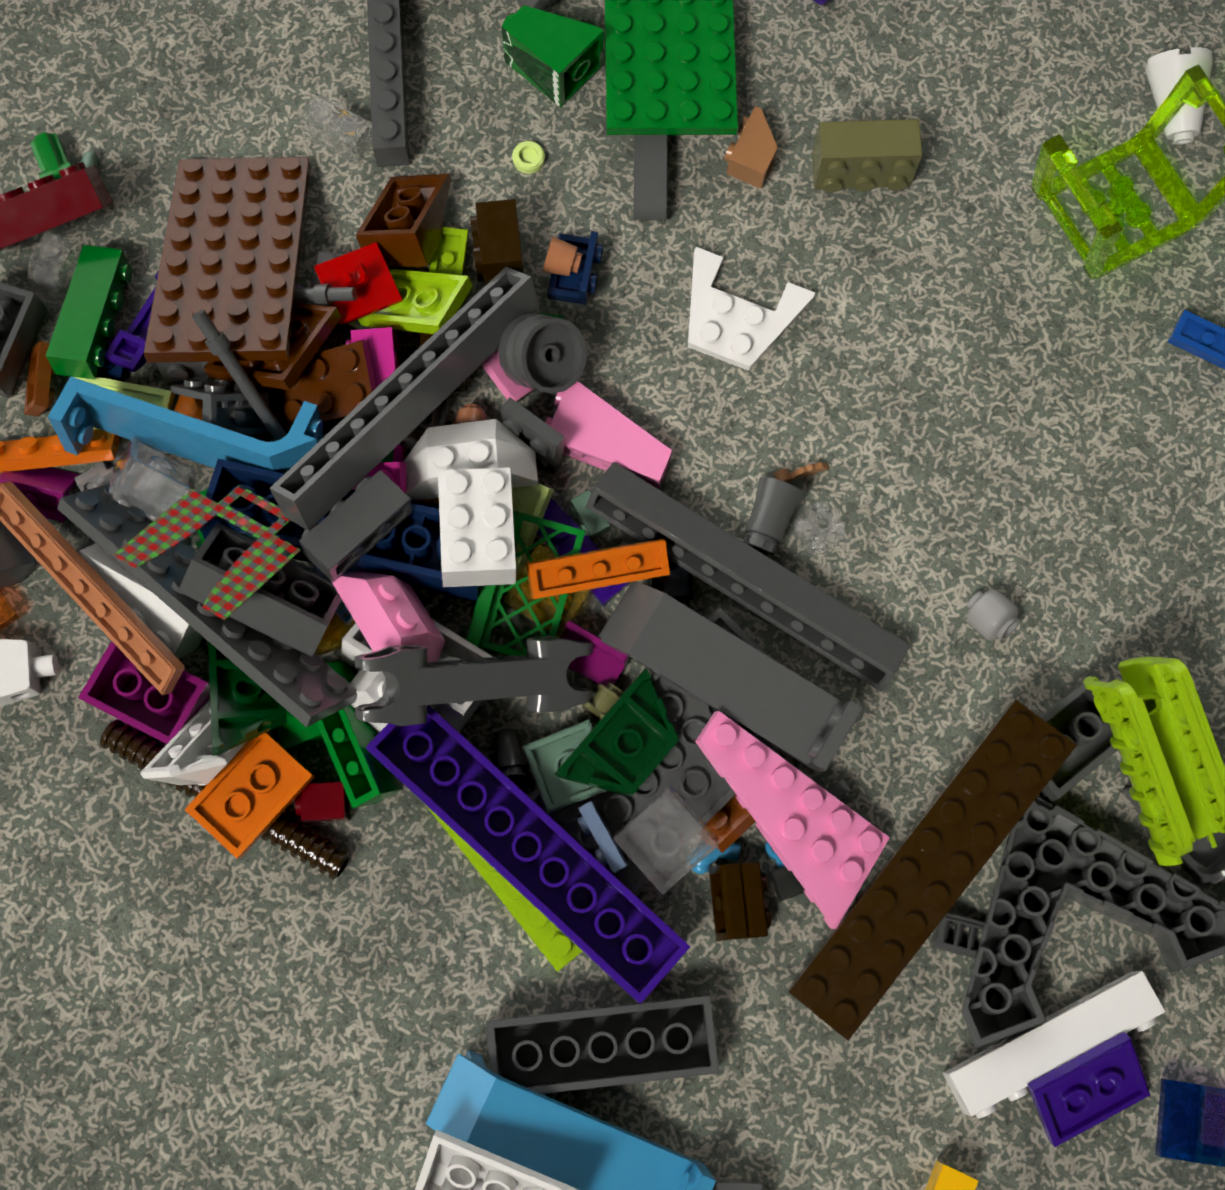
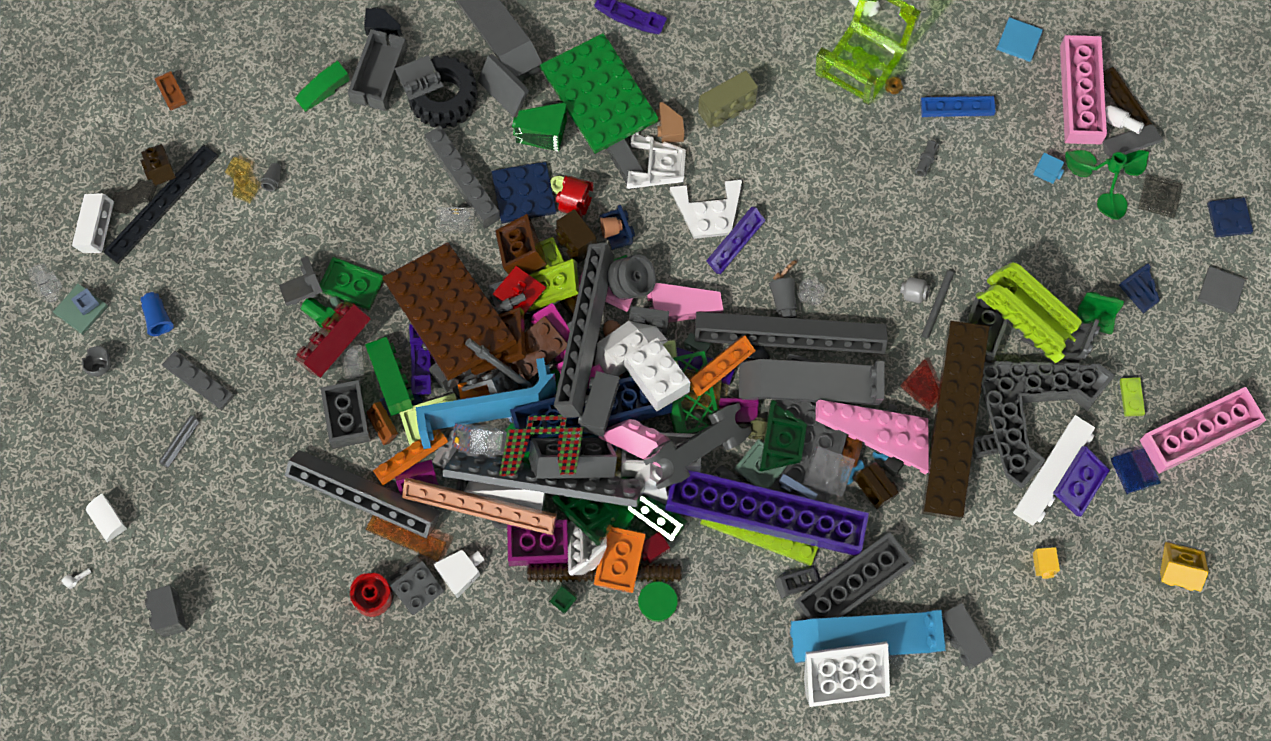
camera: 30 degrees left, 5 degrees down
(54, 112) = (301, 287): none -> dark grey bracket
(130, 146) = (351, 283): none -> green tile
(134, 803) = (562, 597): none -> dark green panel
(280, 891) = (657, 601): none -> green tile
(469, 140) = (523, 192): none -> dark blue plate
(488, 980) = (785, 586): none -> dark grey slope
(537, 183) = (574, 195): none -> red brick
(706, 207) = (664, 165): none -> white wing
(748, 382) = (735, 240): none -> dark purple plate
(913, 777) = (922, 386): none -> clear red wing
(1017, 657) = (937, 304): none -> dark grey bar
(1137, 411) = (927, 158): none -> dark grey pin
(1151, 261) = (893, 81): none -> pearl gold plate

